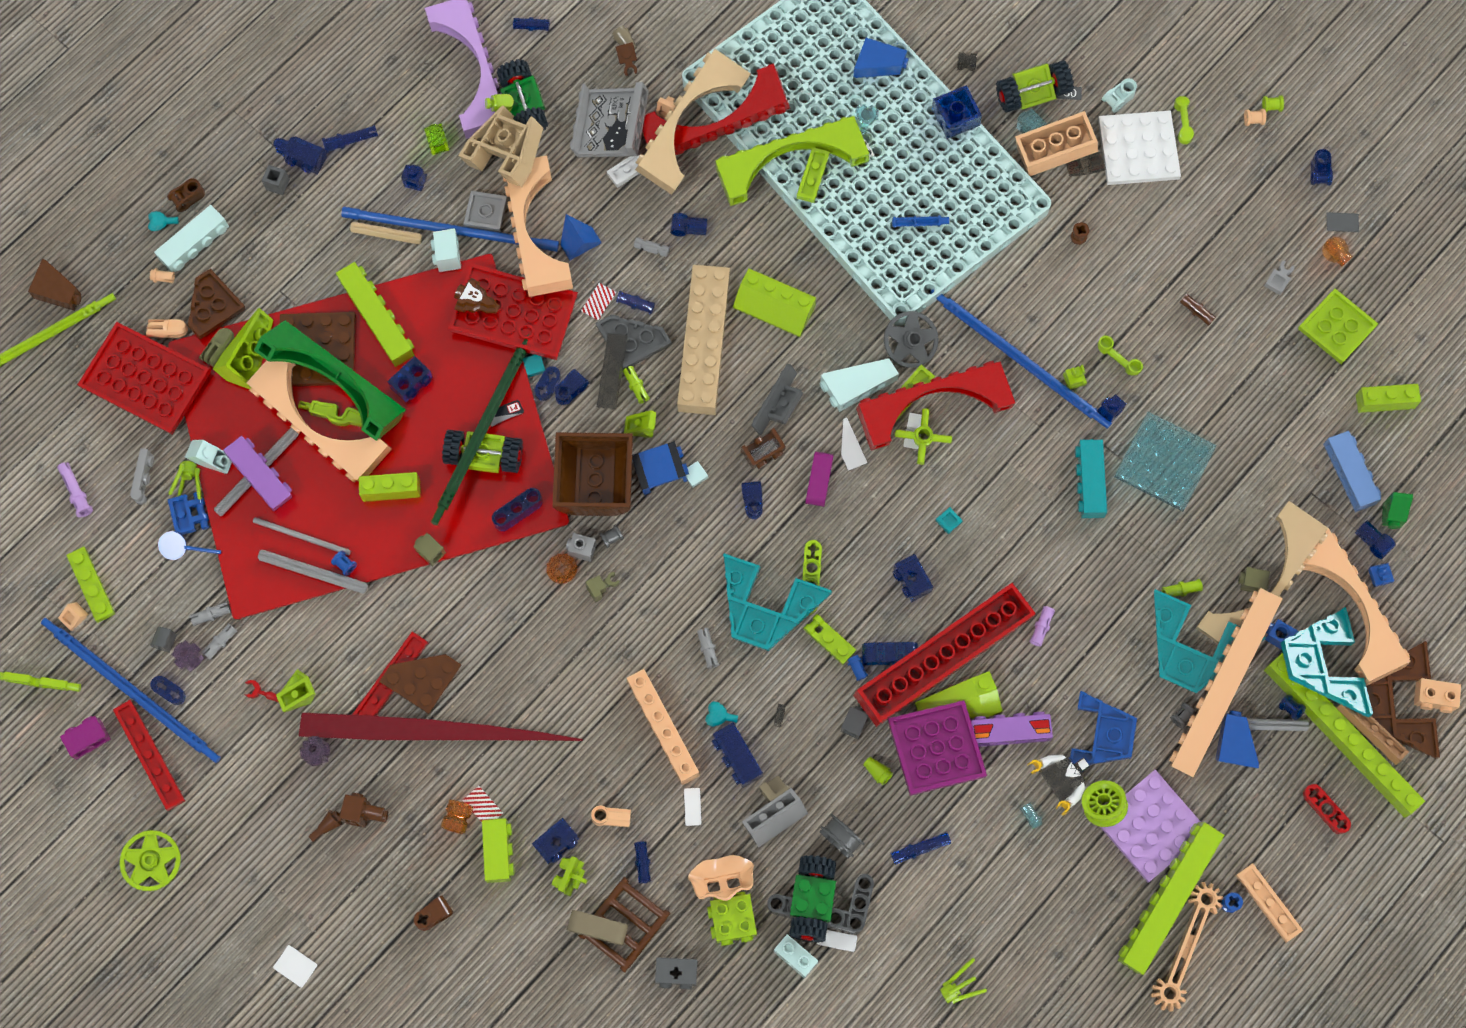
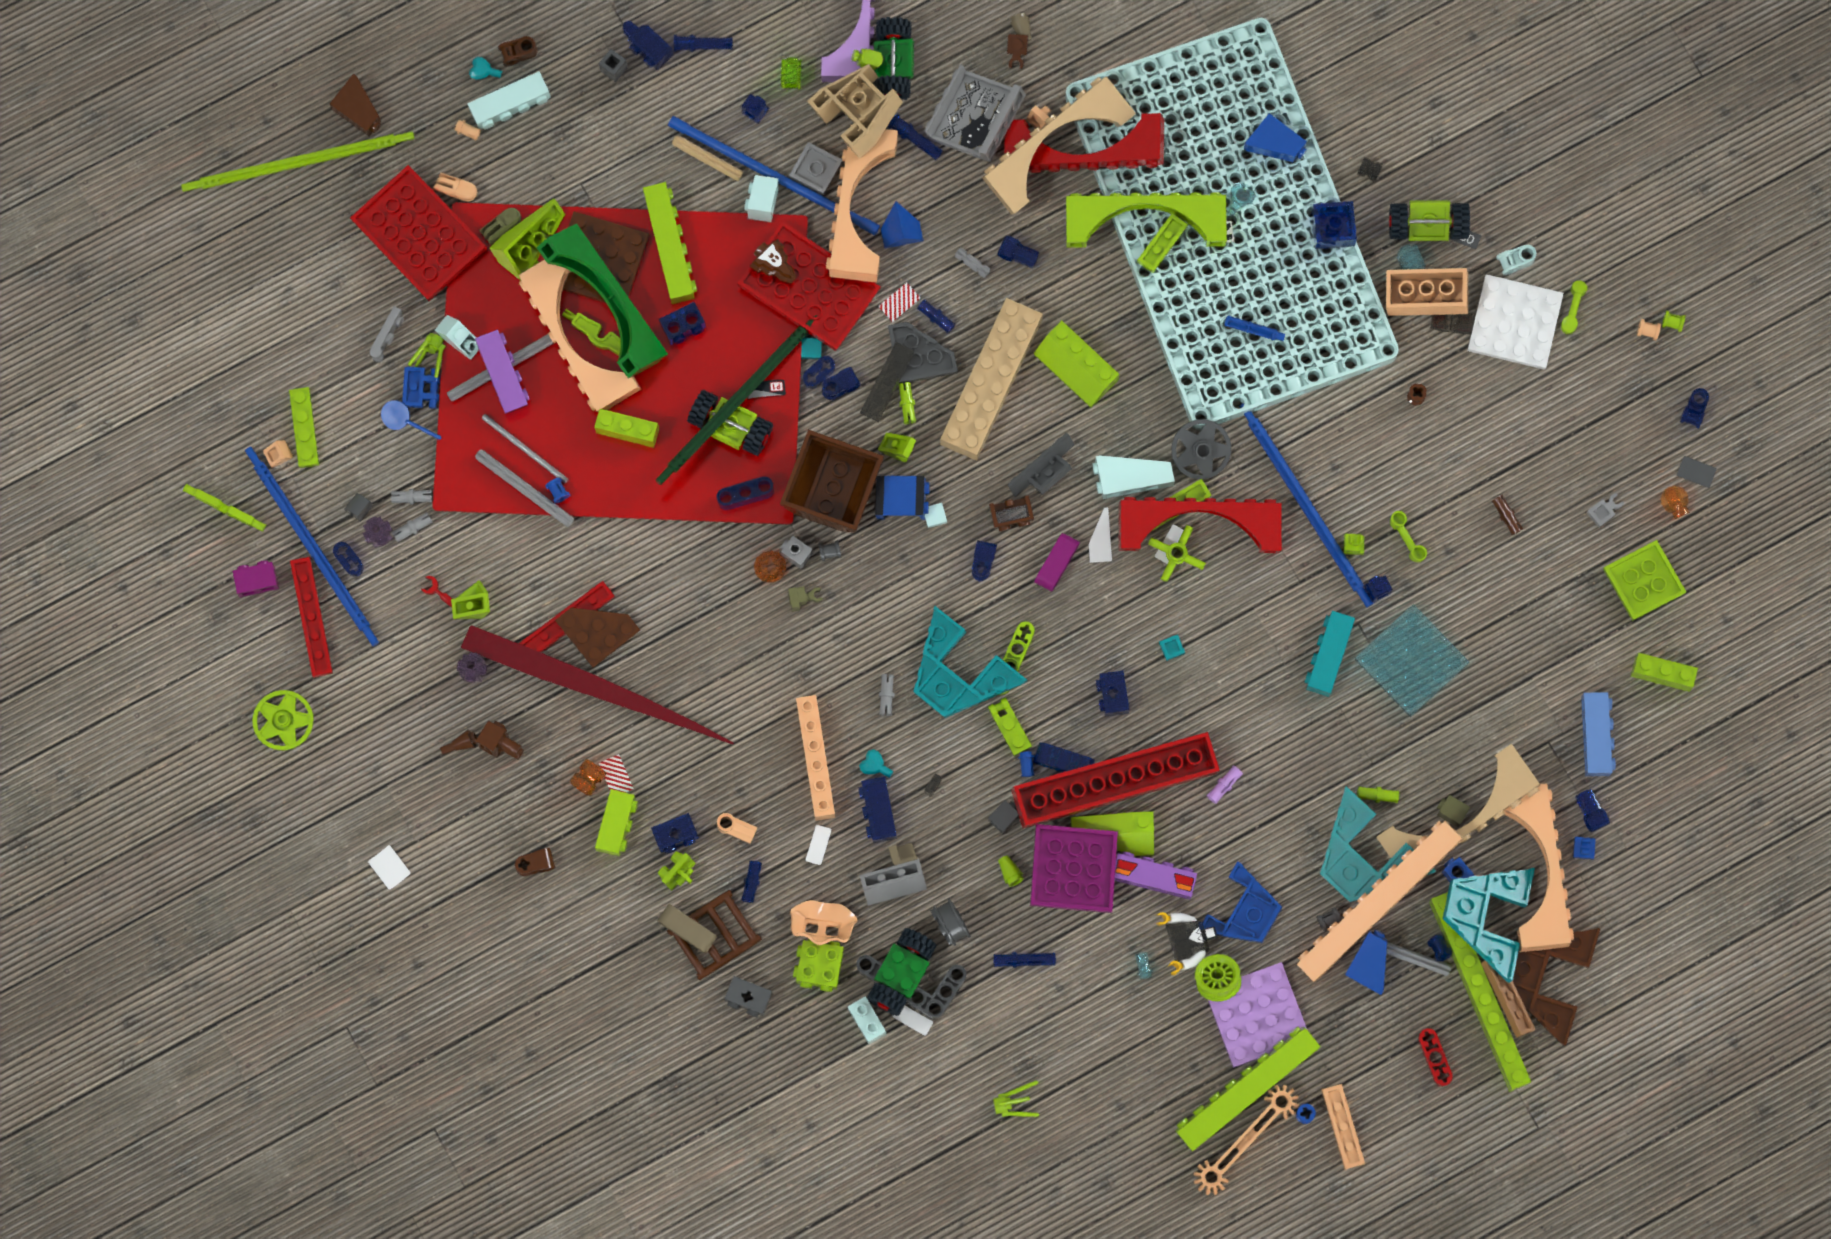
camera: 20 degrees right, 5 degrees up
(77, 497) = (316, 334): lavender pin -> none
(212, 304) = (508, 177): reddish brown plate -> none
(429, 549) = (645, 504): olive brick -> none
(556, 155) = (908, 132): none -> clear blue pin
(623, 171) = (971, 172): white plate -> none
(1396, 510) = (1623, 789): green slope -> none
(1437, 695) = (1589, 985): light nougat brick -> none

